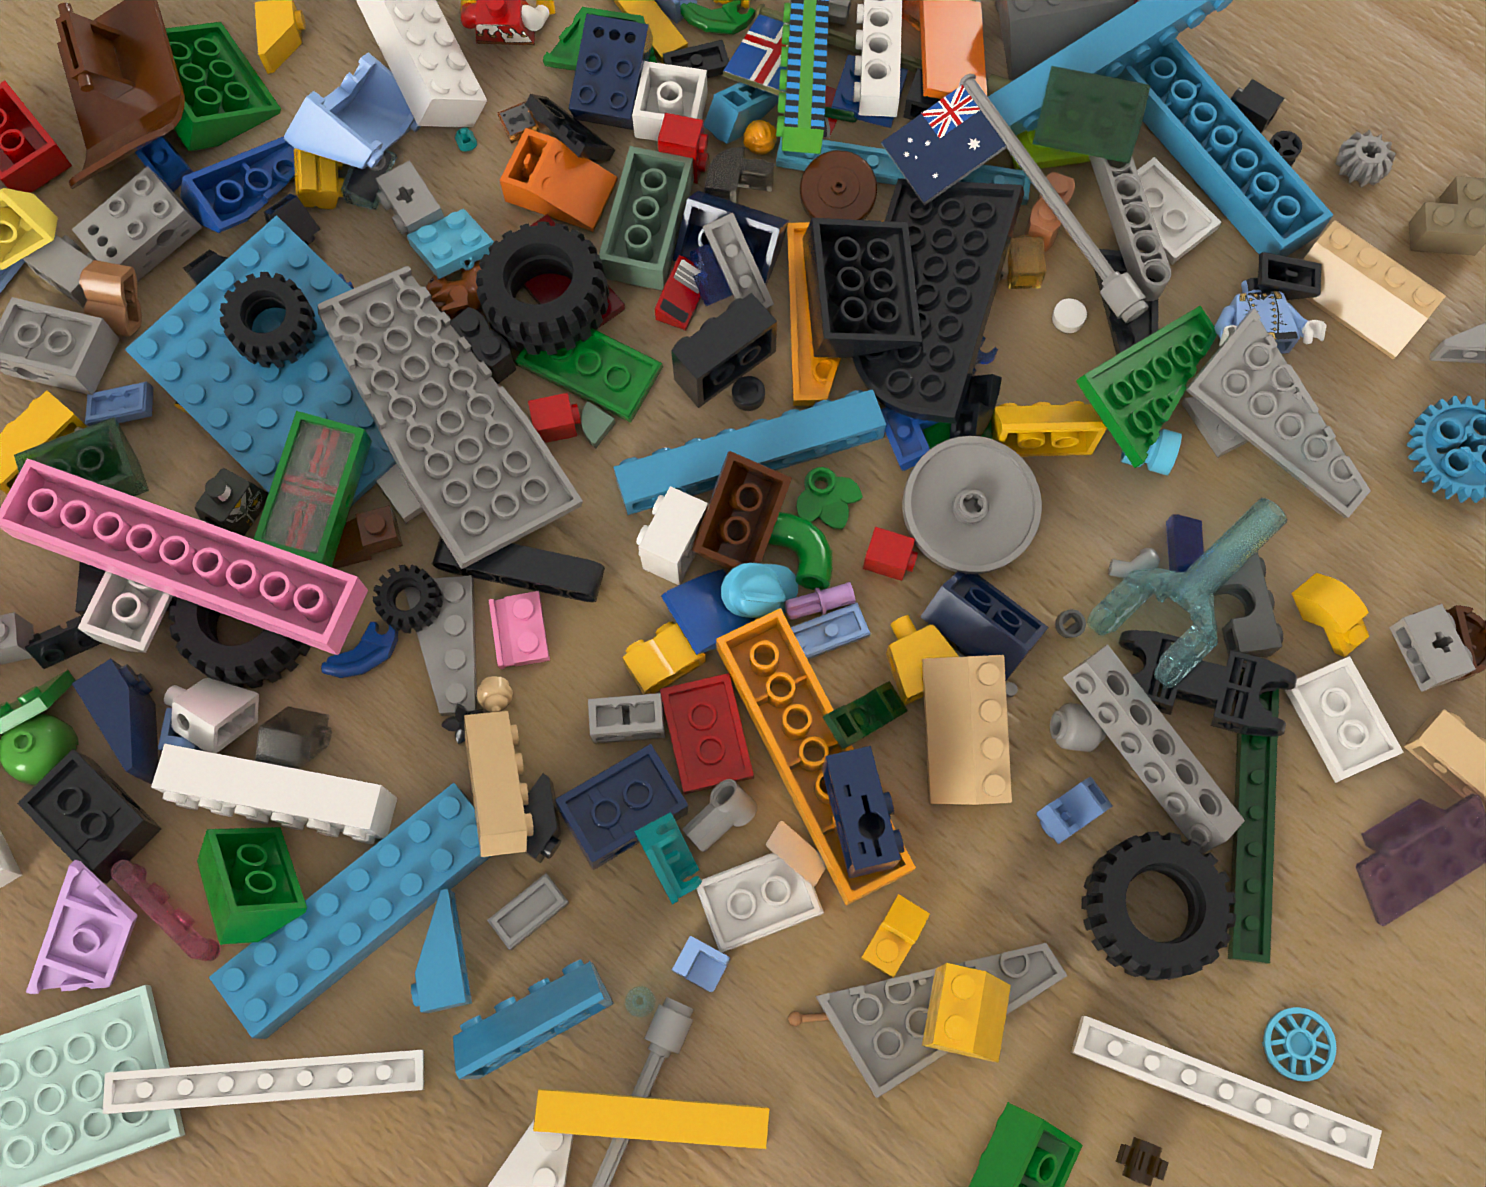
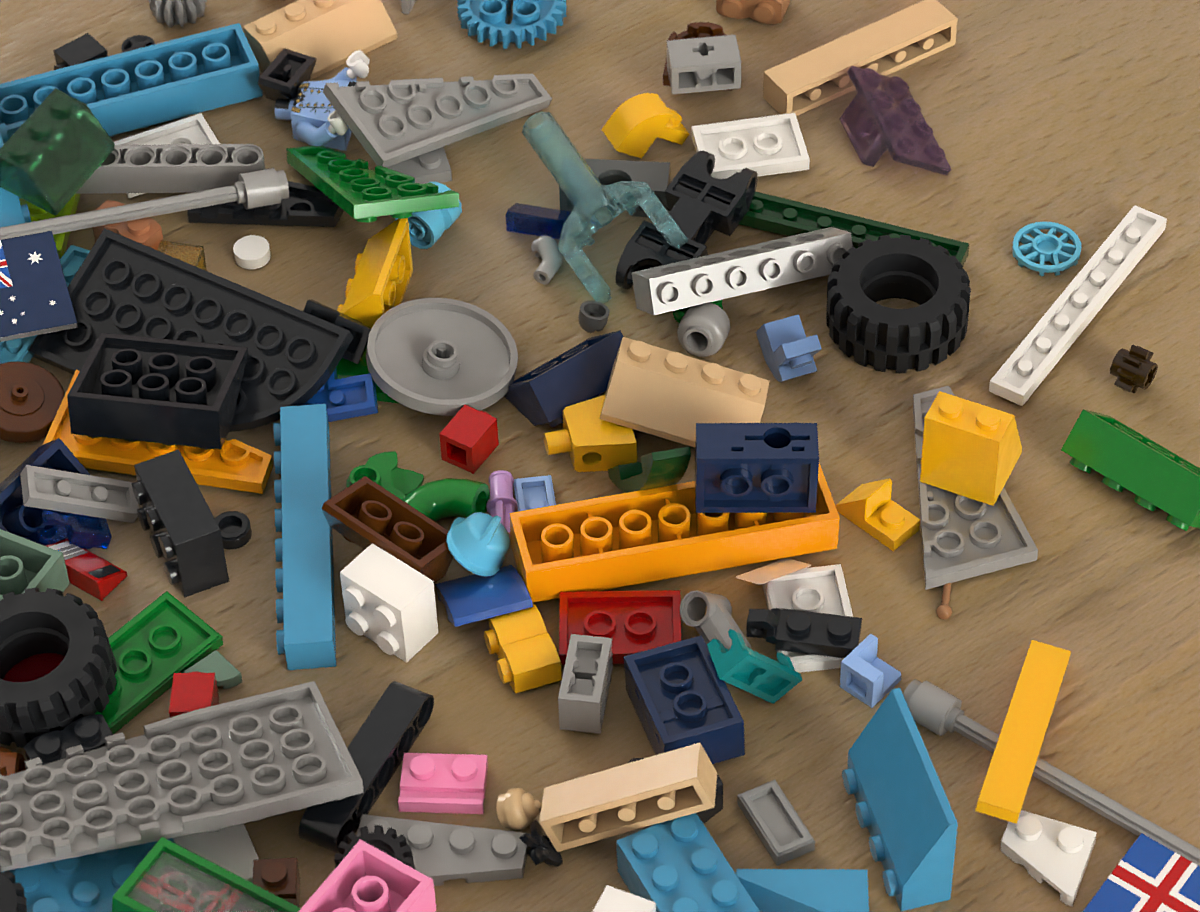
camera: 75 degrees left, 25 degrees down
(729, 900) = (805, 631): none -> black hinge

